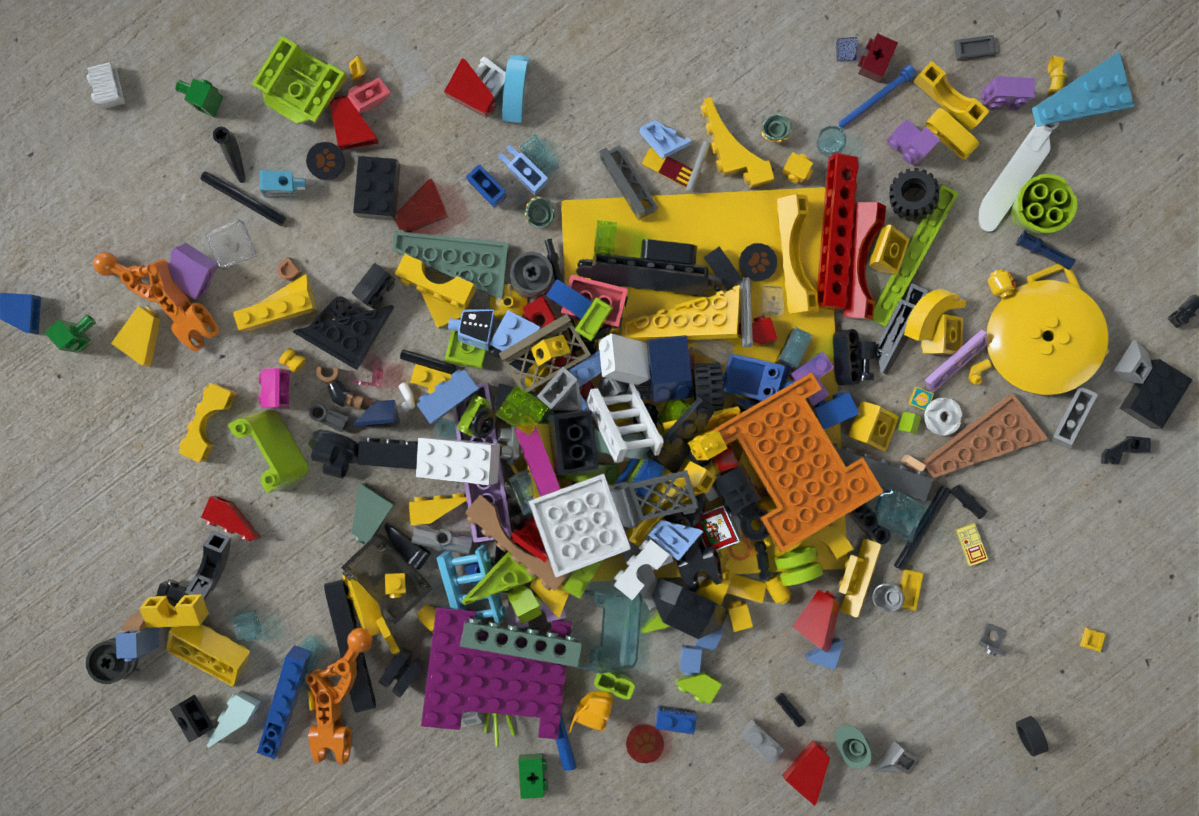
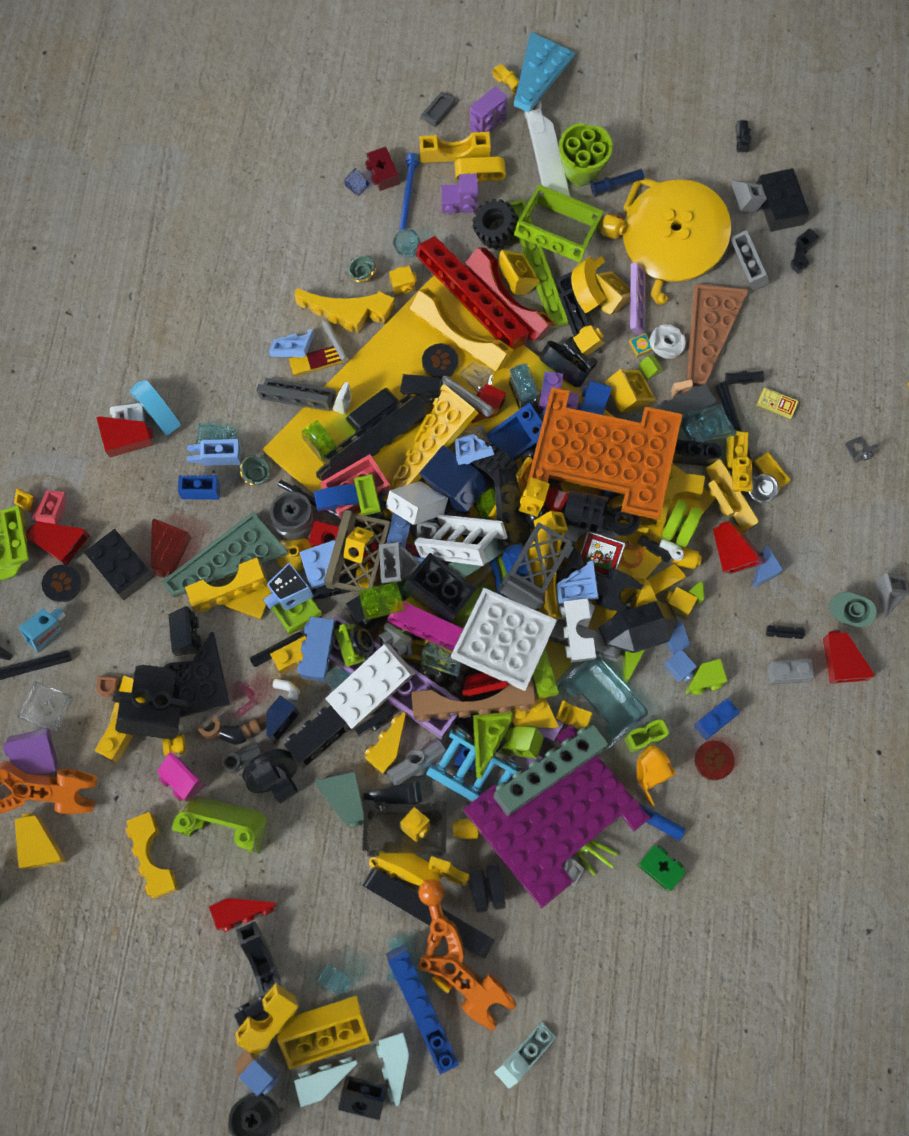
camera: 45 degrees left, 15 degrees down
(173, 680) = (316, 1086): none -> light aqua slope
(288, 328) = (149, 718): none -> black piece
(321, 798) = (525, 1055): none -> light aqua slope
(442, 484) = (373, 723): none -> black plate
(581, 618) = (573, 715): none -> yellow bracket
(654, 222) = (343, 399): none -> white slope
(702, 361) = (470, 449): none -> light blue wing
(758, 621) = (698, 591): none -> lime slope
(773, 577) = (674, 549): none -> white arm
(882, 573) = (742, 474): none -> yellow hips
(884, 358) = (589, 339): none -> yellow brick
(899, 551) = (736, 447): none -> yellow slope
(984, 232) = (563, 205): none -> lime window

